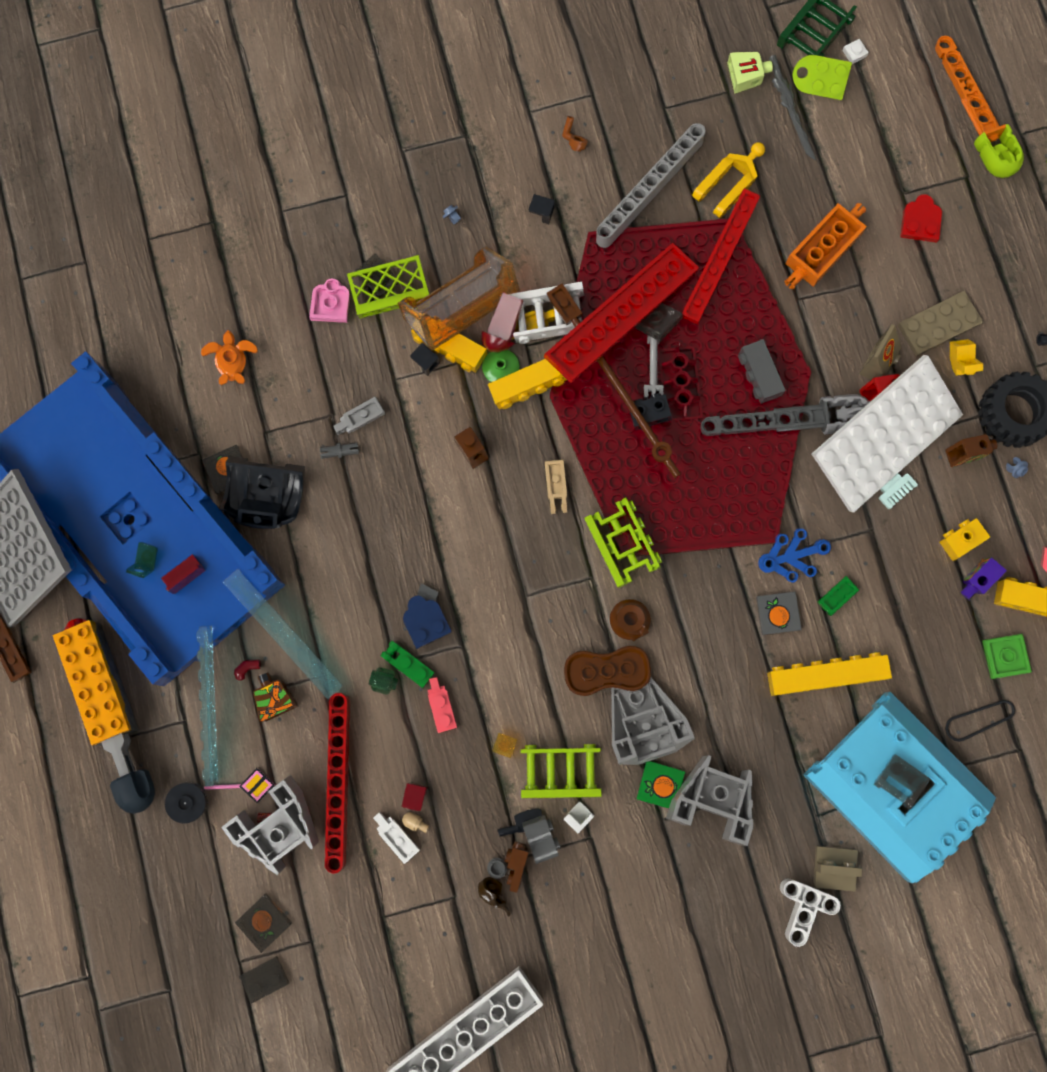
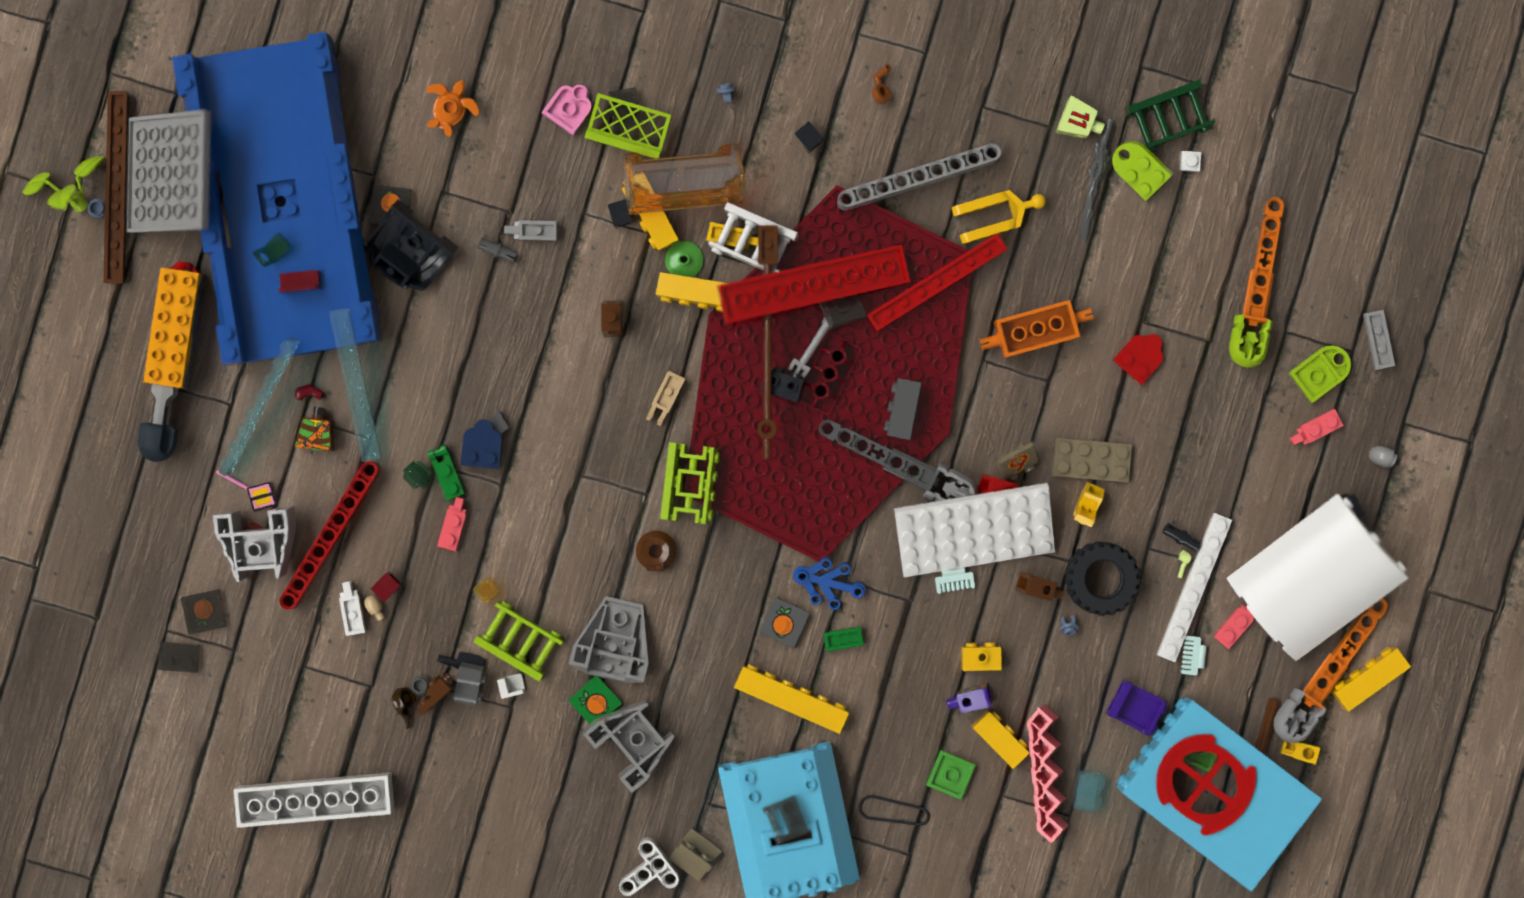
camera: 20 degrees right, 10 degrees up
(186, 802) = (195, 475): black piece -> none
(503, 324) = (704, 228): piece -> none
(623, 669) = (596, 575): reddish brown plate -> none

